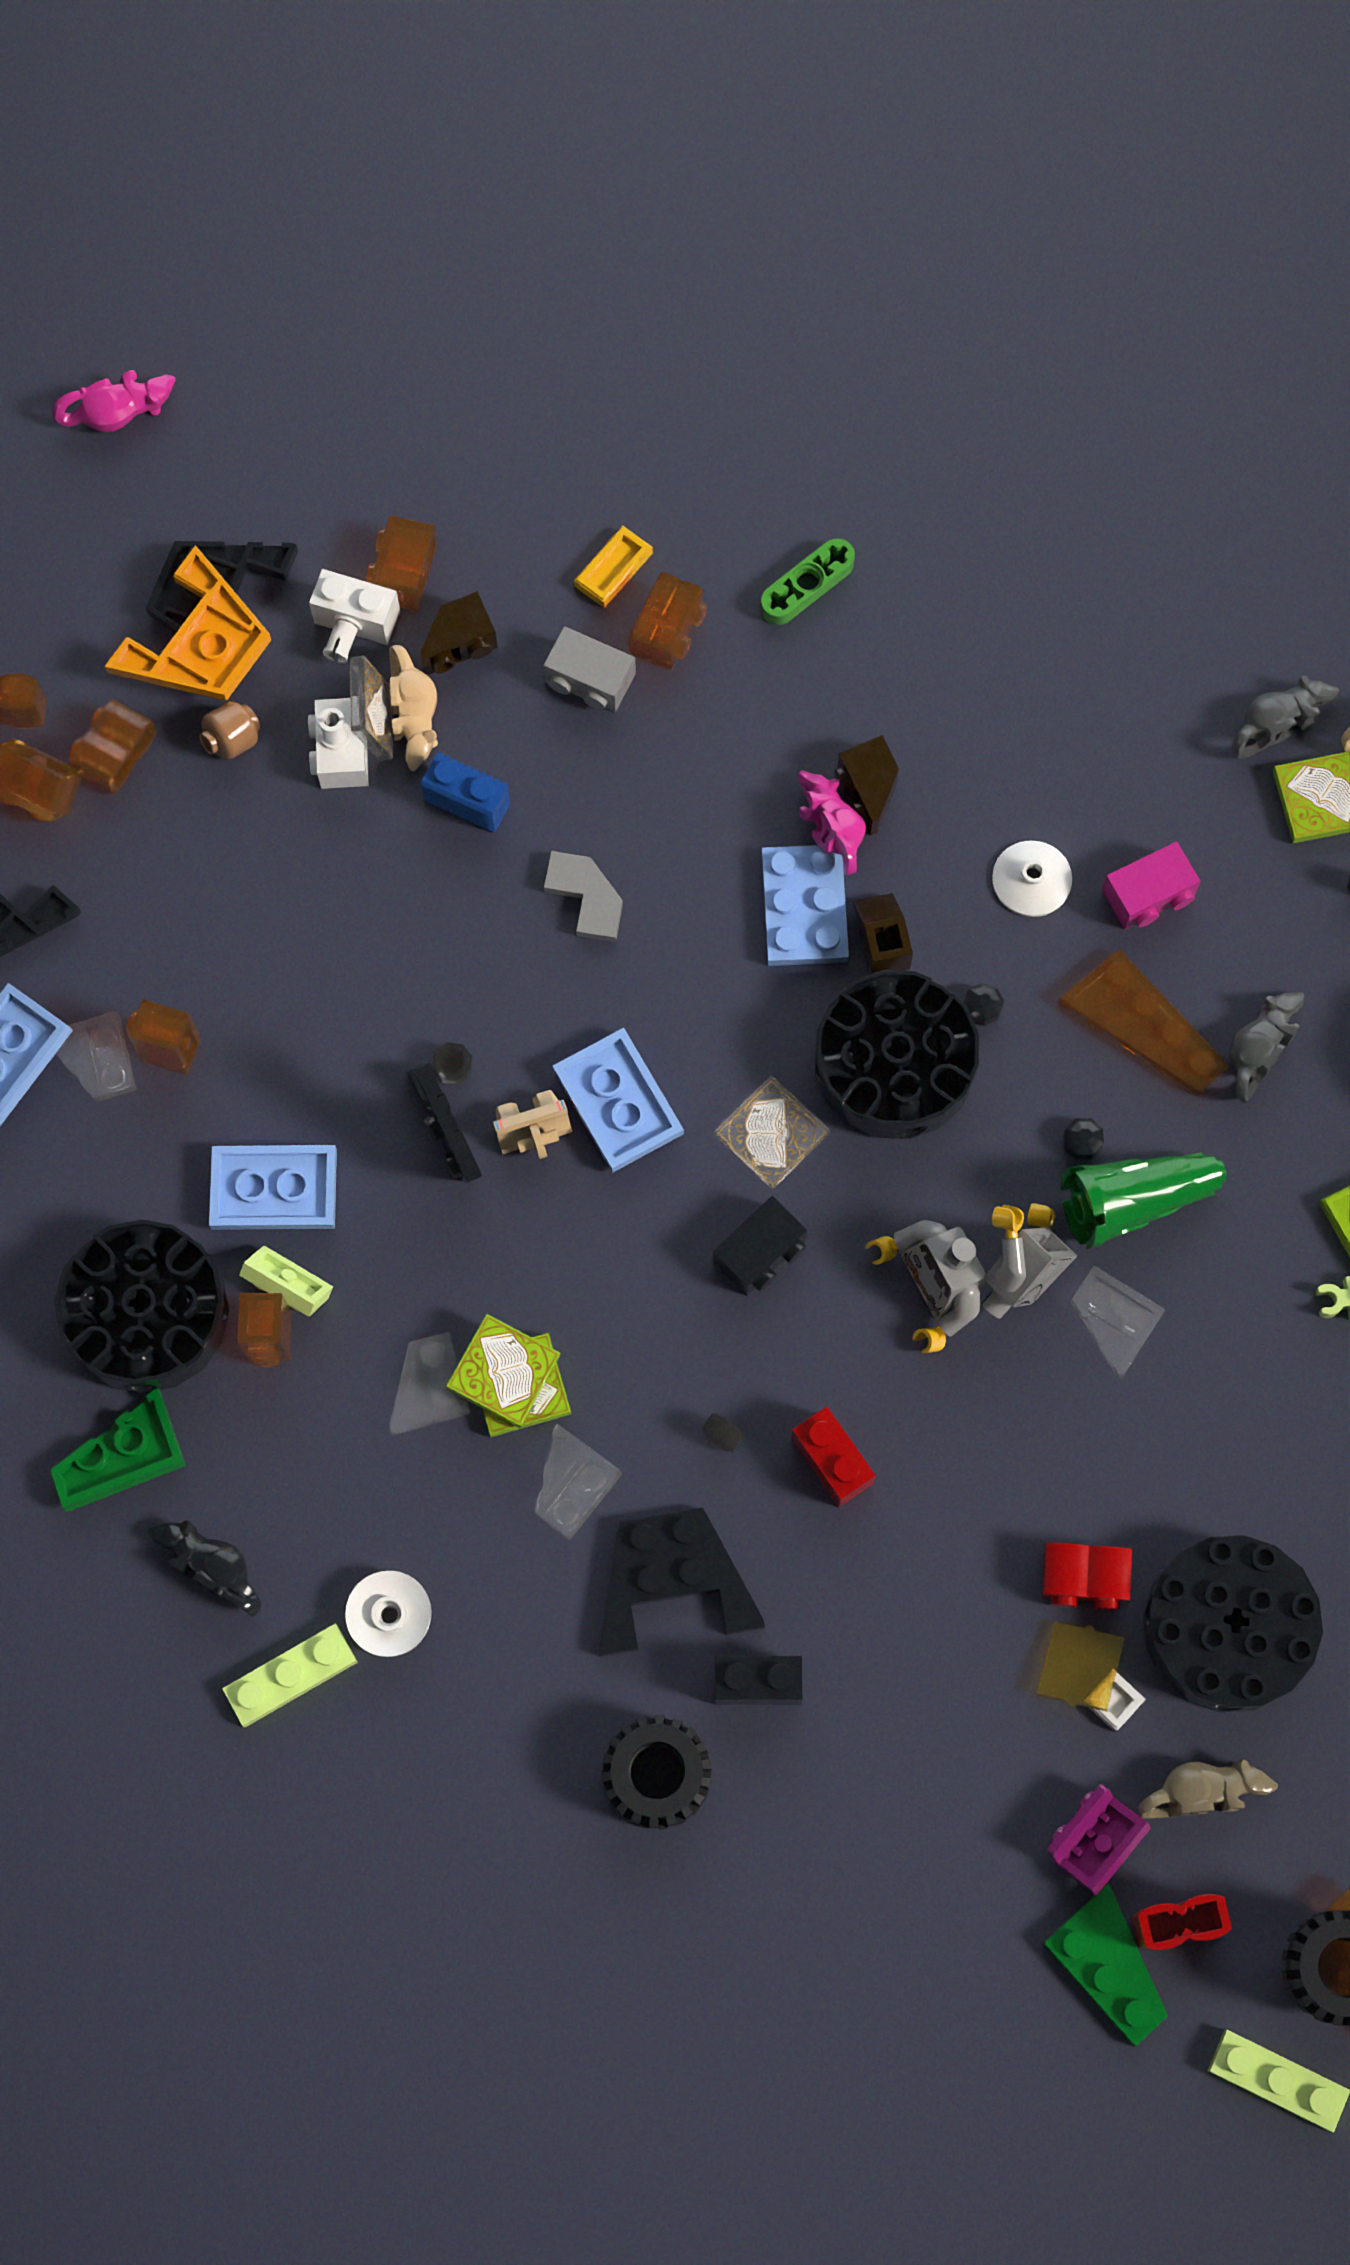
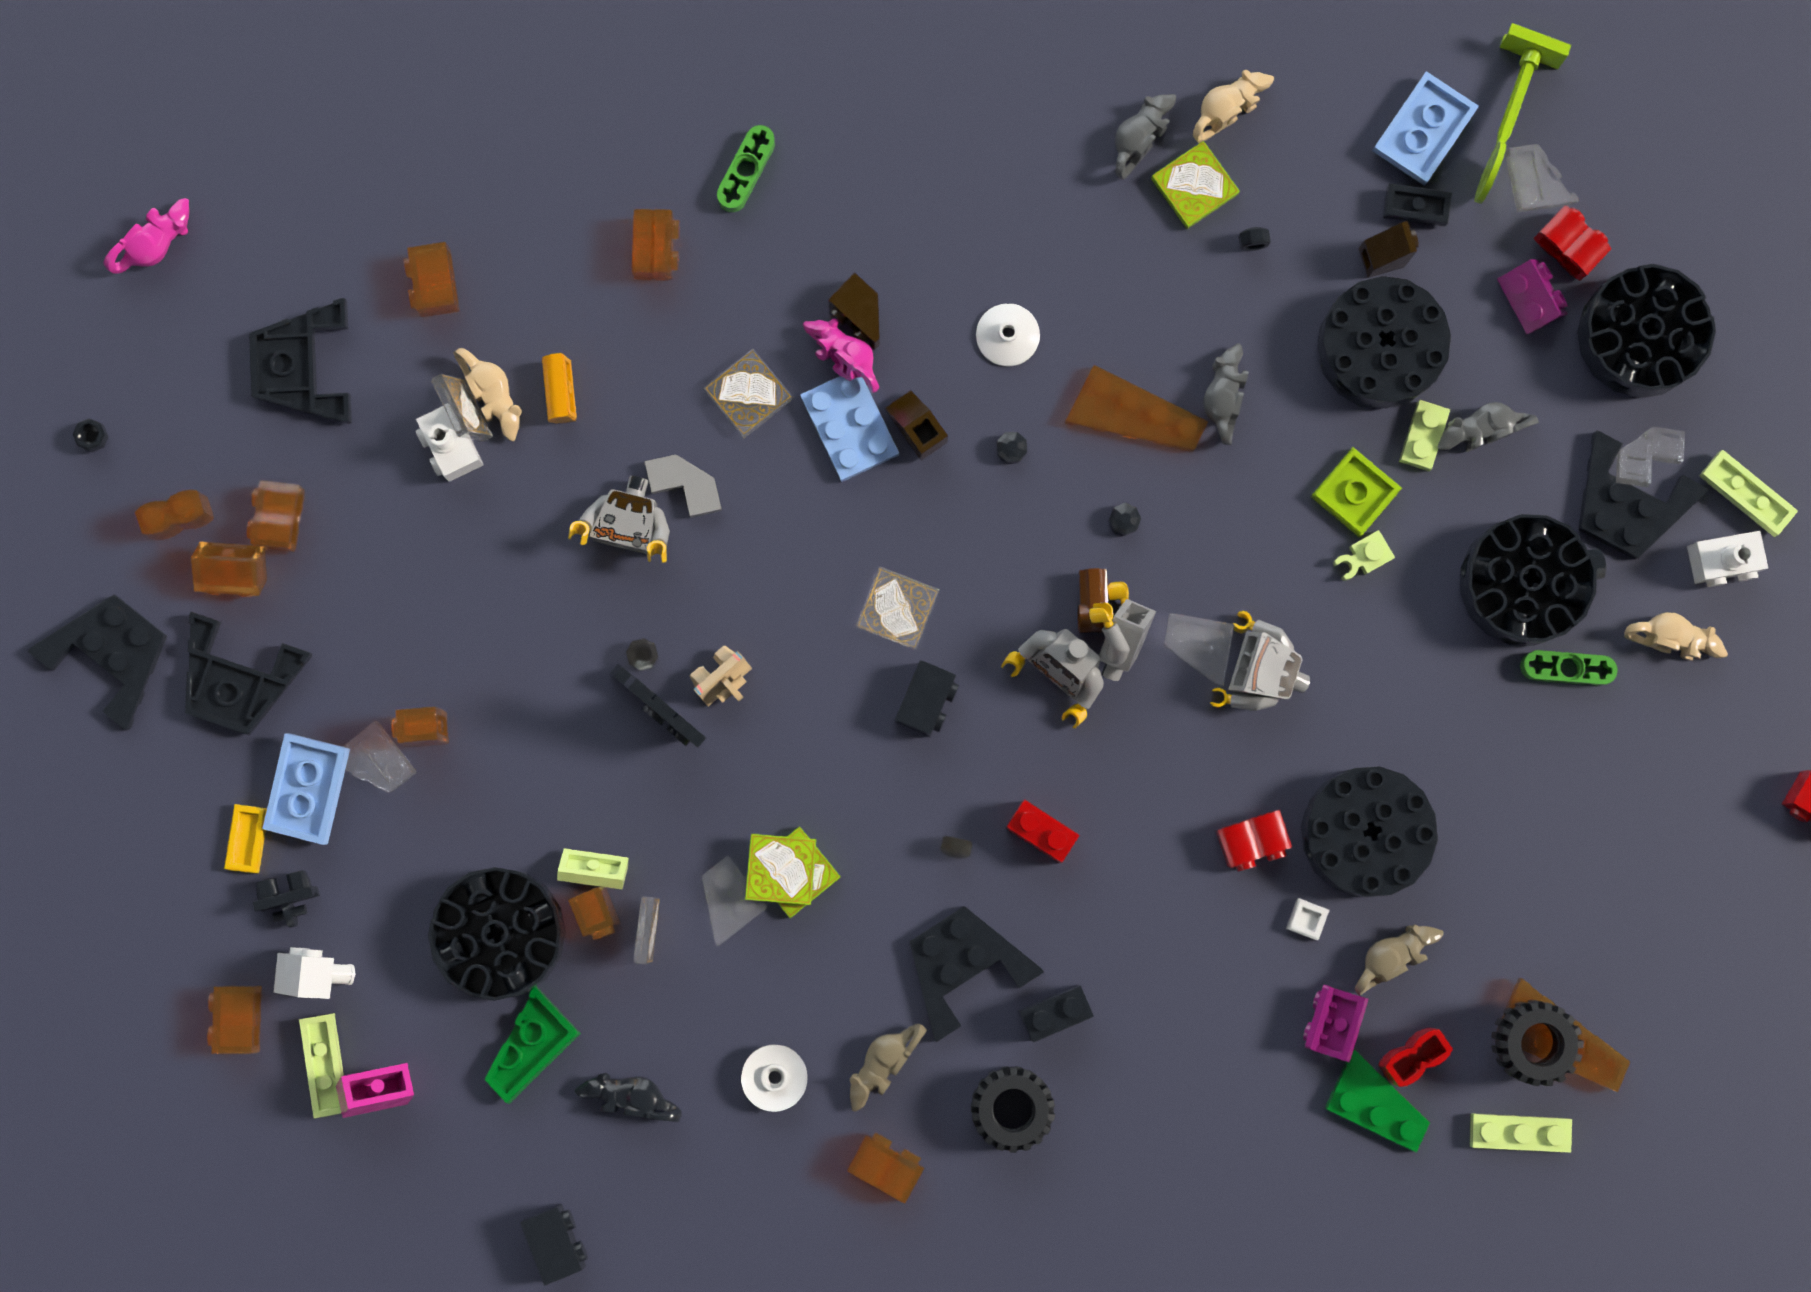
camera: 30 degrees left, 10 degrees up
(42, 1698) = (554, 1244): none -> black brick
(211, 646) = (317, 410): light orange wing -> none
(229, 730) = (360, 467): medium nougat head -> none
(273, 1187) = (551, 803): light blue plate -> none
(290, 1675) = (722, 1149): yellowish green plate -> none
(316, 1373) = (646, 930): none -> clear tile
(352, 610) = (412, 333): white brick -> none
(457, 634) = (499, 319): dark brown slope -> none
(465, 792) = (561, 443): blue brick -> none
(474, 1779) = (885, 1167): none -> clear orange brick
(491, 732) = (559, 388): none -> light orange brick
(499, 906) = (625, 521): none -> torso
(529, 1645) = (883, 1057): none -> dark tan animal
(573, 1483) = (864, 928): clear wing -> none
(589, 670) = (612, 308): light grey brick -> none
(613, 566) = (593, 215): yellow tile -> none
(618, 1100) = (775, 631): light blue plate -> none
(703, 824) = (748, 393): none -> tile
(925, 1028) = (975, 484): black brick -> none
(1013, 1191) = (1092, 589): none -> reddish brown piece
(1081, 1666) = (1275, 905): clear yellow piece -> none
(1132, 1192) = (1175, 550): green cone -> none
(1151, 886) = (1098, 307): dark pink brick -> none
(1181, 1375) = (1264, 669): none -> light grey torso

